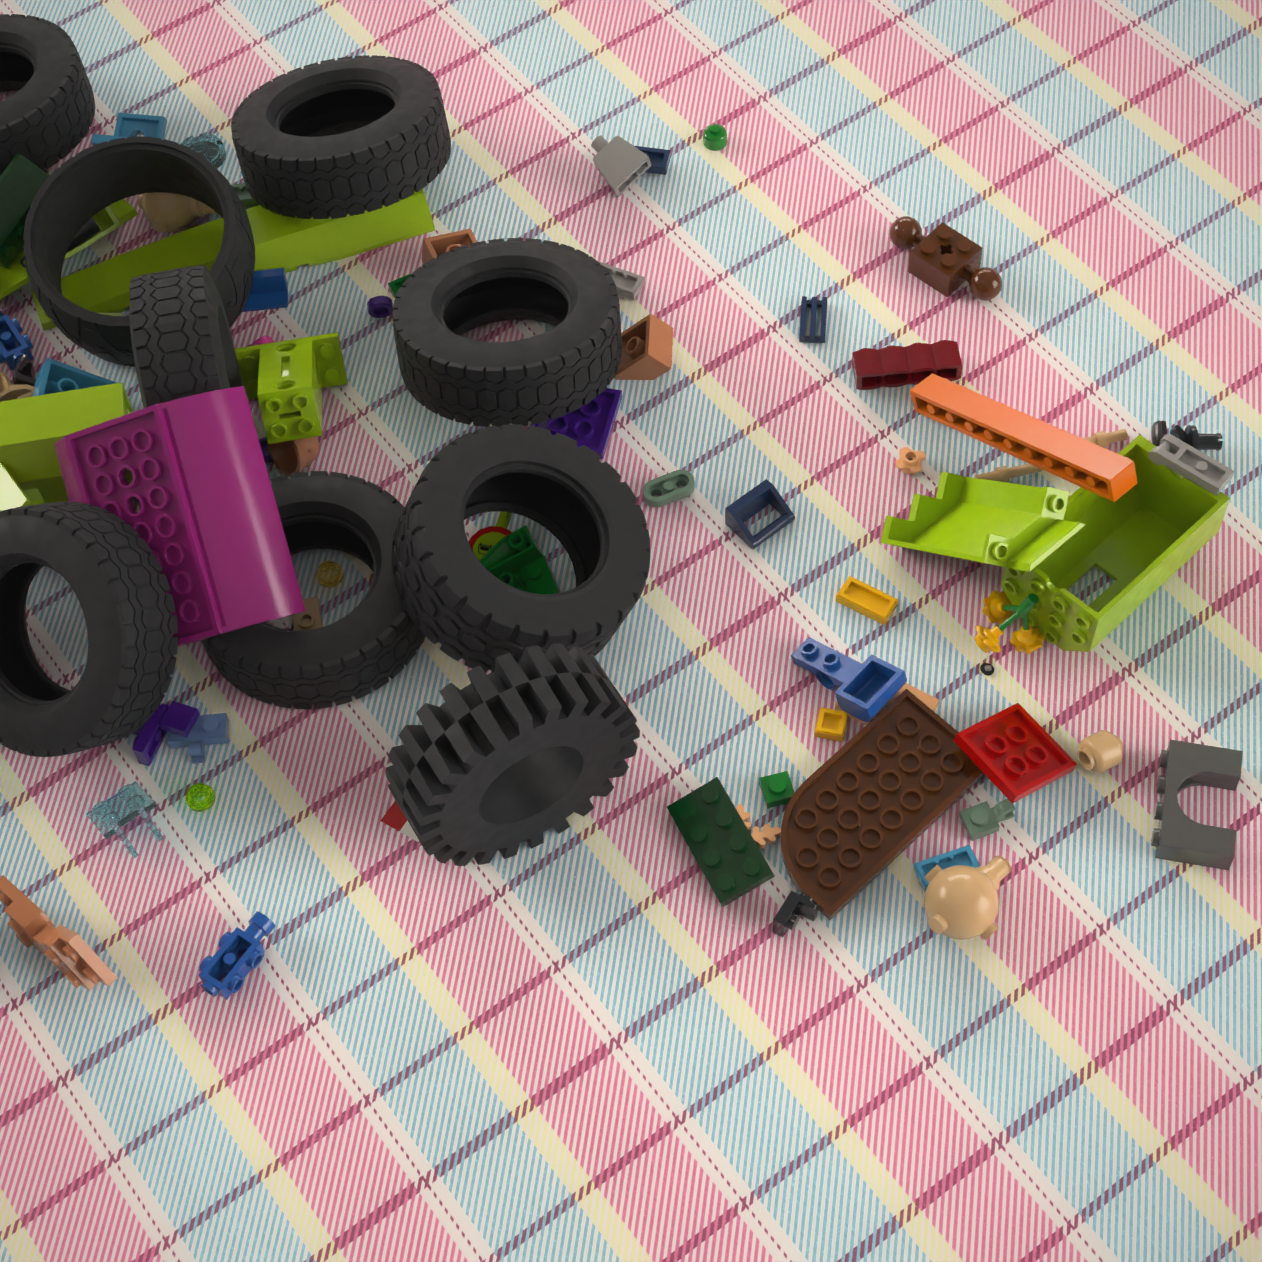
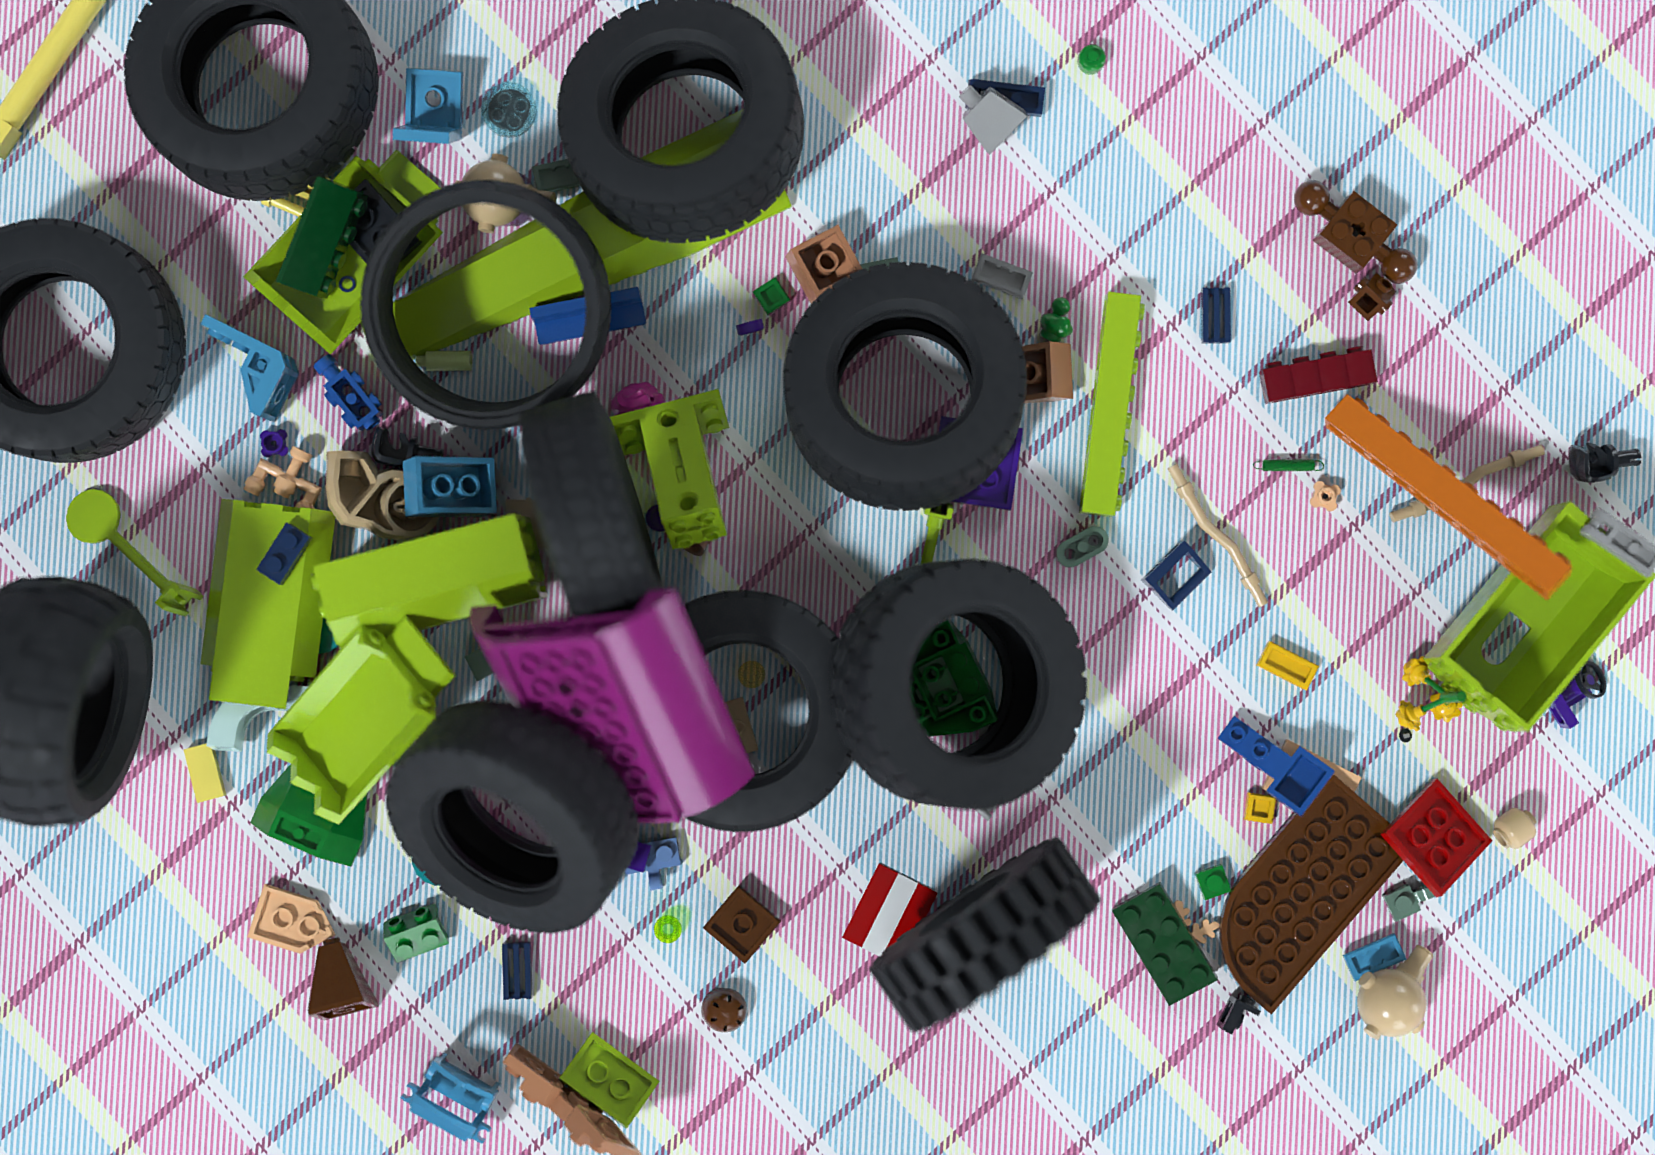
camera: 10 degrees left, 30 degrees up
(30, 808) = (517, 994): none -> dark blue tile
(108, 930) = (609, 1080): none -> lime plate
(122, 808) = (597, 954): clear light blue plate -> none
(227, 962) = (732, 1098): blue brick -> none
(243, 874) = (726, 1011): none -> reddish brown helmet
(277, 796) = (742, 924): none -> reddish brown plate
(664, 310) = (1053, 324): none -> green animal
(705, 380) = (1110, 404): none -> lime brick
(831, 523) = (1249, 578): none -> tan bar
(876, 435) = (1289, 465): none -> green piece
(959, 304) = (1372, 296): none -> reddish brown brick
(985, 522) = (1413, 612): lime panel -> none
(1154, 641) = (1575, 691): none -> piece
(1178, 835) = (1588, 840): dark grey arch -> none

